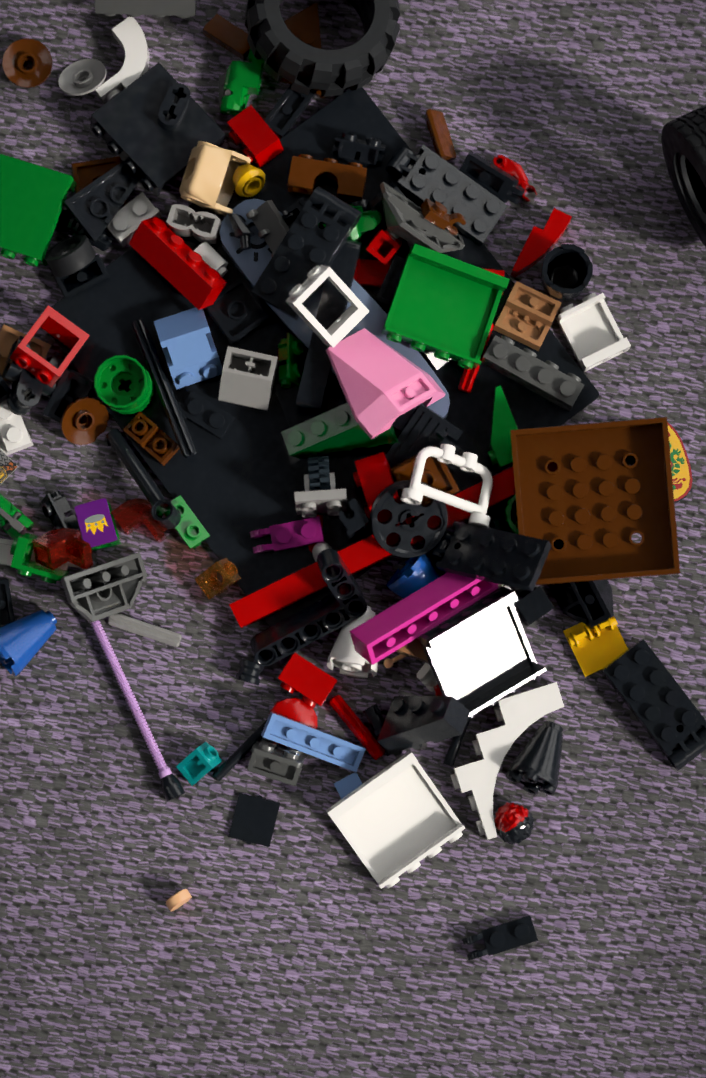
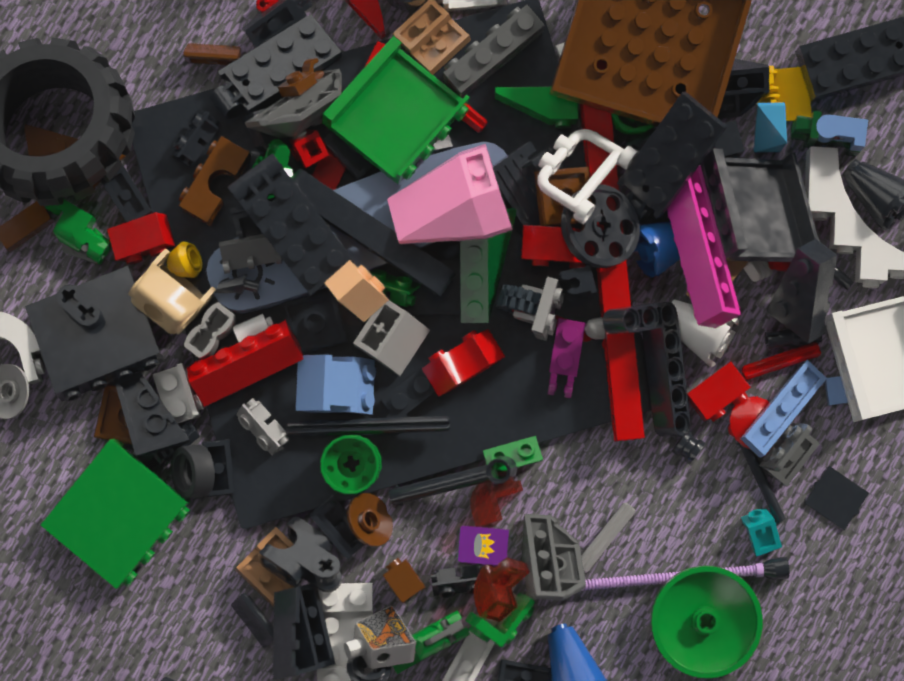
camera: 75 degrees left, 0 degrees up
(43, 467) = (403, 579): none -> reddish brown brick
(62, 330) = (269, 507): red window -> none
(101, 741) = (706, 621): none -> green dish
(134, 290) = (253, 418): none -> light grey hinge
(151, 438) = (414, 458): reddish brown slope -> none
(178, 899) = (891, 603): light nougat tile -> none
(209, 582) = (587, 452): clear orange brick -> none
(249, 449) = (463, 362): none -> red brick
(271, 330) = (357, 290): none -> light nougat brick
(344, 323) = (378, 212): white window -> none
(560, 639) = (770, 127): none -> dark azure slope
(577, 694) = (830, 131): none -> hips

